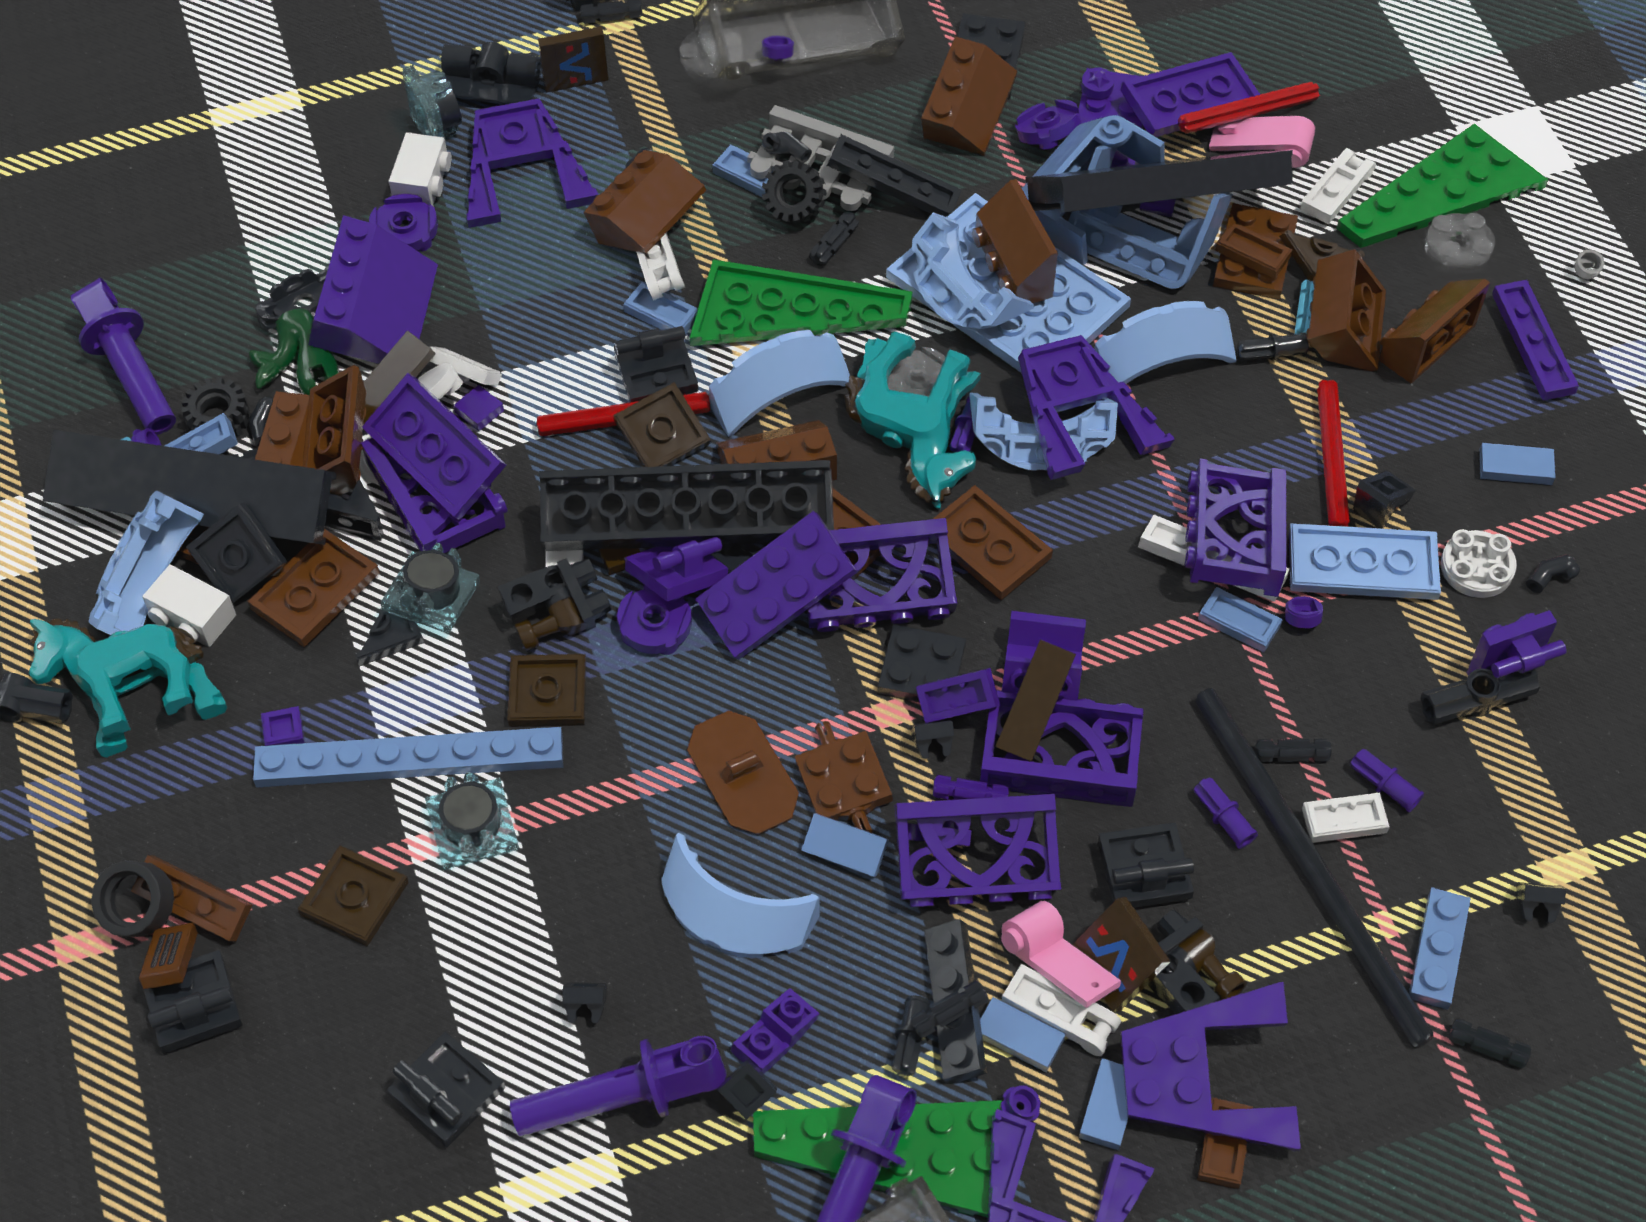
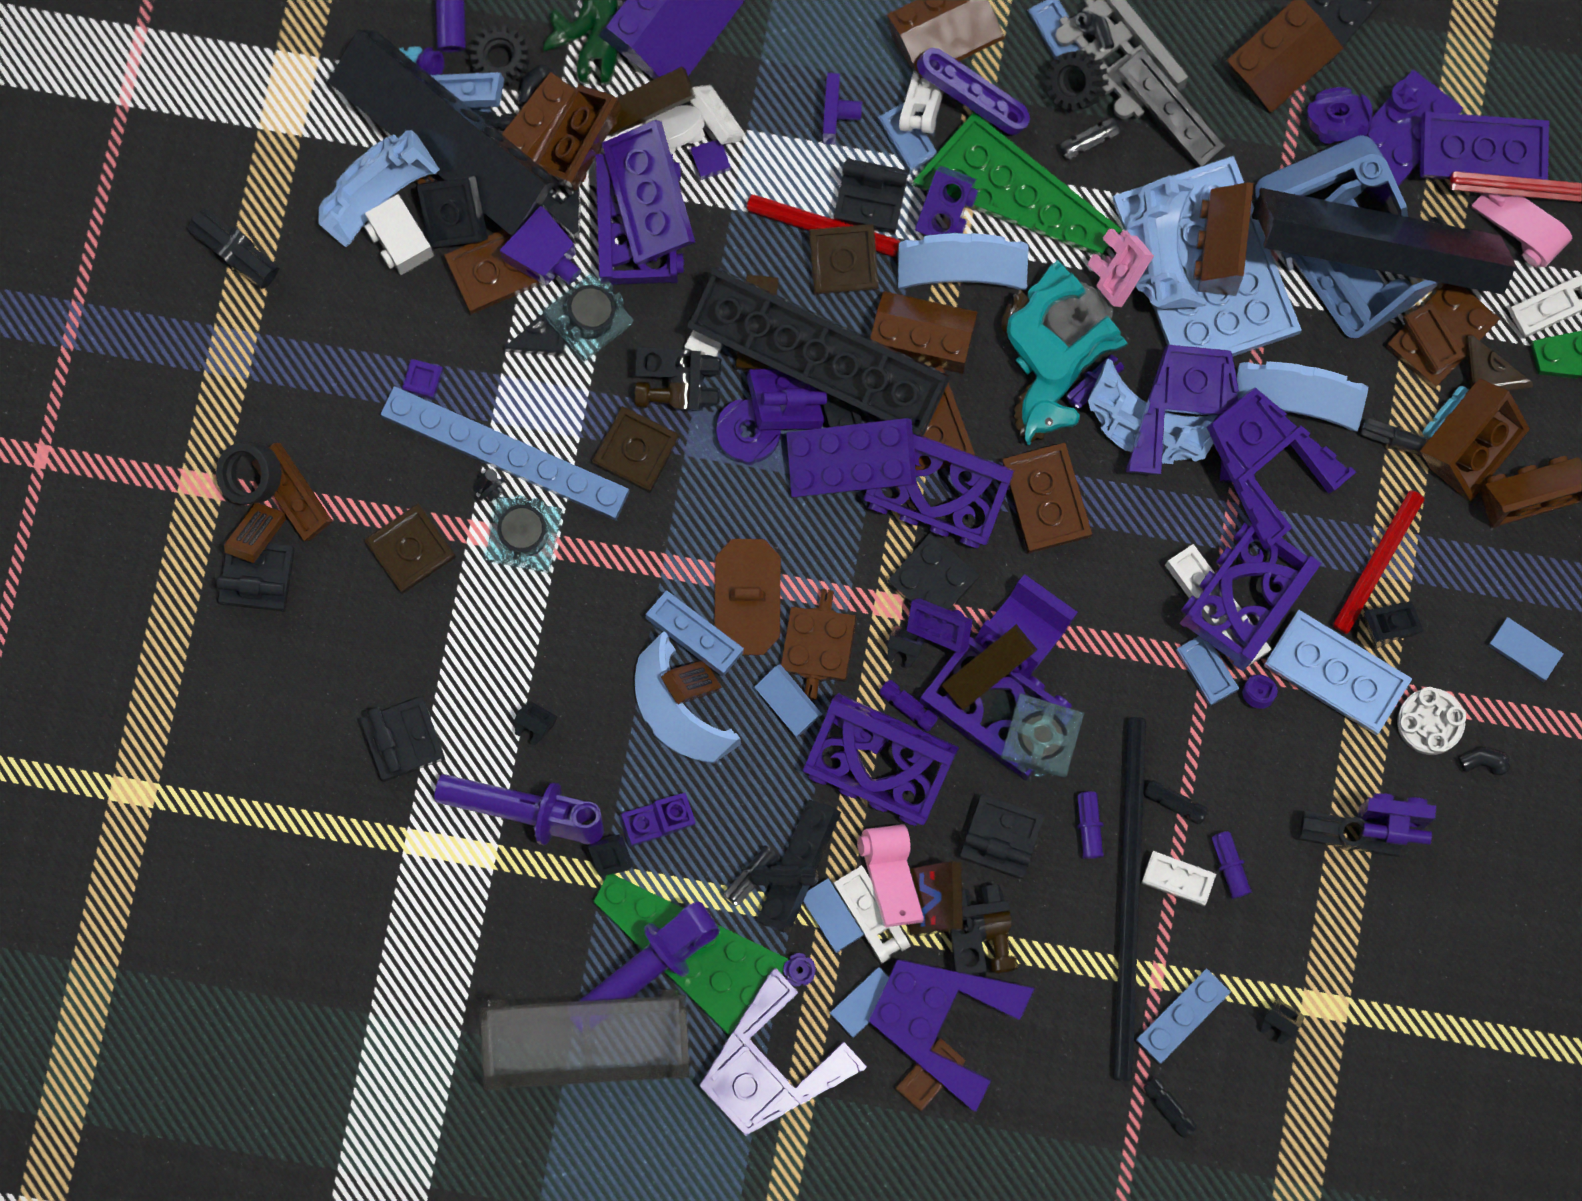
camera: 30 degrees right, 20 degrees up
(120, 665) = (325, 263): teal animal -> none
(350, 546) = (541, 250): none -> dark purple torso
(409, 791) = (489, 486): none -> black plate
(579, 313) = (837, 109): none -> dark purple tile
(702, 238) = (973, 91): none -> dark purple plate
(709, 827) = (694, 633): none -> medium blue plate
(727, 338) = (940, 202): none -> dark purple brick
(733, 871) = (691, 682): none -> reddish brown tile
(938, 314) = (1123, 271): none -> bright pink plate
(1130, 737) = (1041, 736): none -> clear light blue piece
(1152, 397) = (1249, 438): none -> dark purple wing

